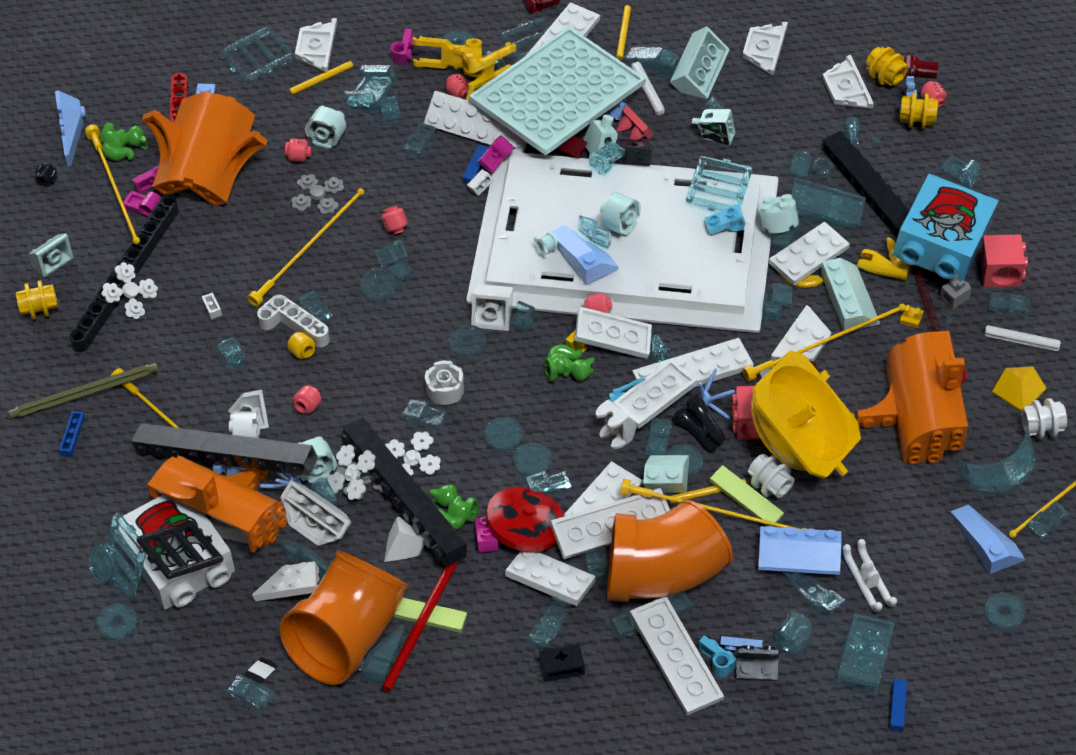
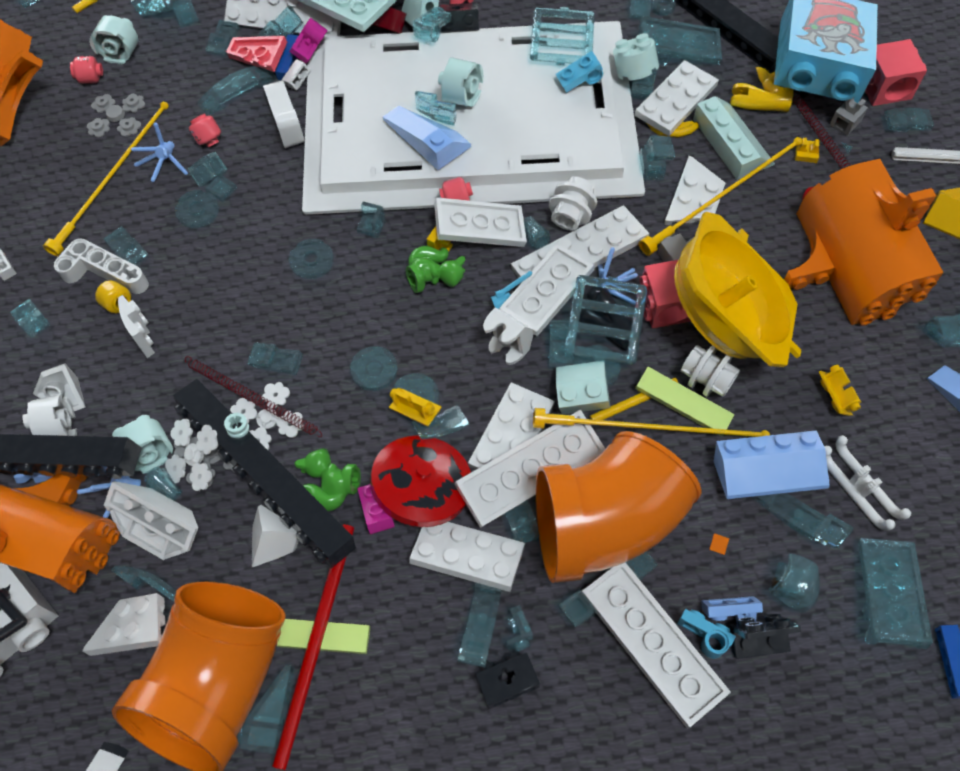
camera: 10 degrees left, 10 degrees up
(307, 399) = (127, 364): coral head -> none
(319, 370) = (135, 324): none -> white slope
(354, 232) = (162, 152): none -> light blue plant
(390, 460) = (237, 432): none -> light aqua bush
(413, 449) = (248, 395): none -> dark red piece
(424, 183) = (232, 86): none -> clear light blue slope
(444, 383) = (291, 316): white brick -> none
(450, 156) = (258, 51): none -> coral wing
(464, 215) = (284, 114): none -> white beam
(471, 139) = (283, 25): none -> clear light blue slope
(491, 306) = (332, 213): white slope -> none
(529, 465) = (413, 406): none -> yellow hinge
(546, 243) = (382, 129): light aqua brick -> none
(579, 633) = (519, 625): none -> clear light blue bracket
(694, 329) = (572, 203): none -> white piece
(714, 439) = (636, 312): none -> clear light blue bar
(746, 602) = (719, 544): none -> orange window
(873, 515) = (843, 399): none -> yellow hinge

